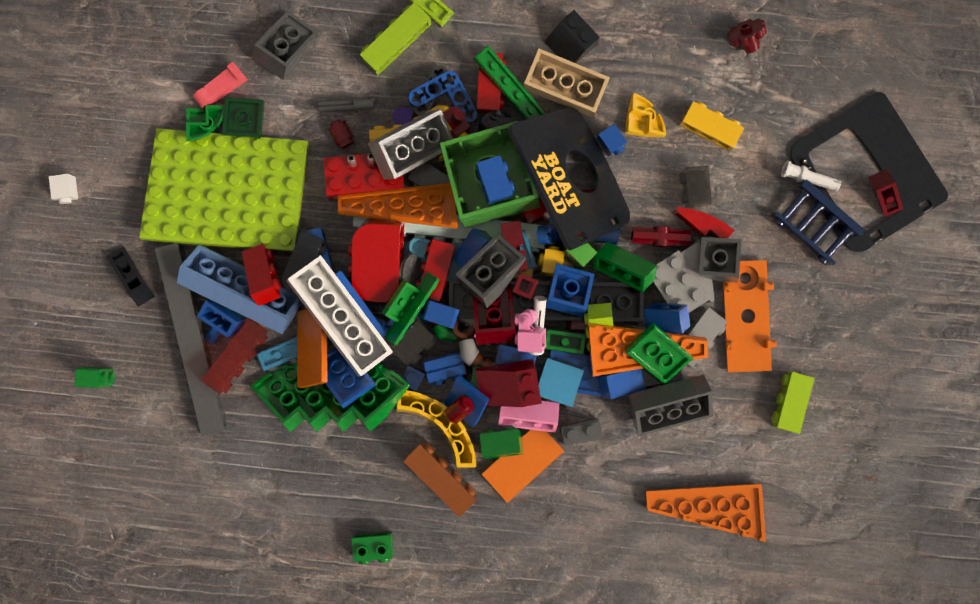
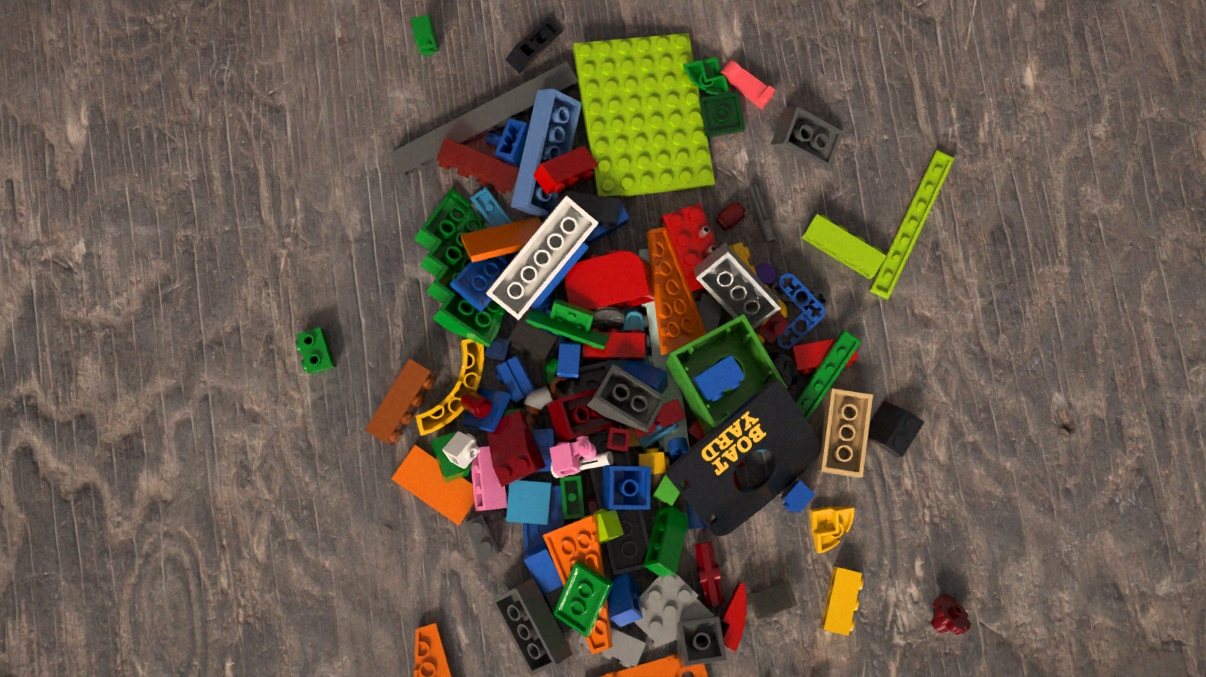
camera: 80 degrees right, 5 degrees down
(498, 432) = (461, 449): none -> white brick

